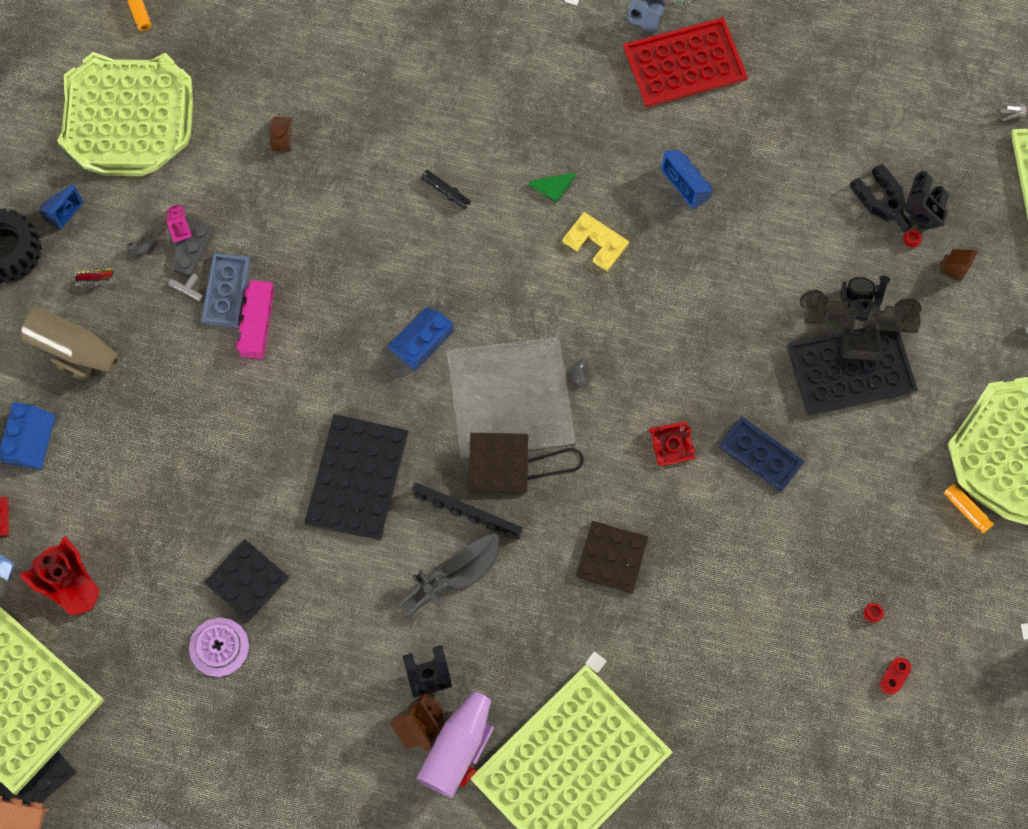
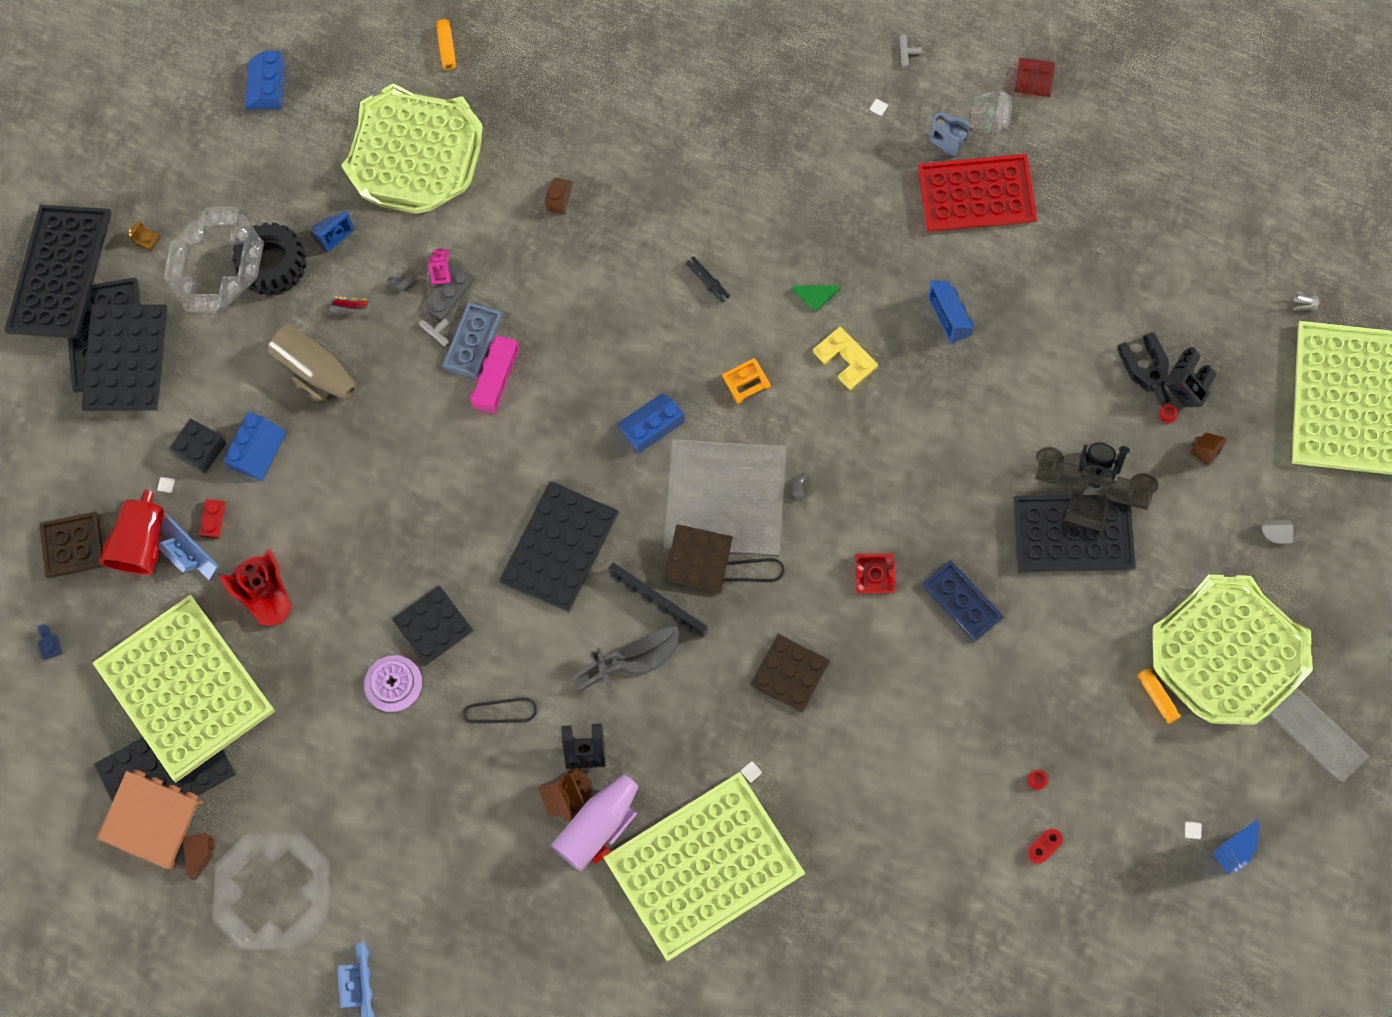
camera: 20 degrees right, 0 degrees up
(337, 662) = (497, 702): none -> black piece
(501, 276) = (742, 376): none -> light orange plate

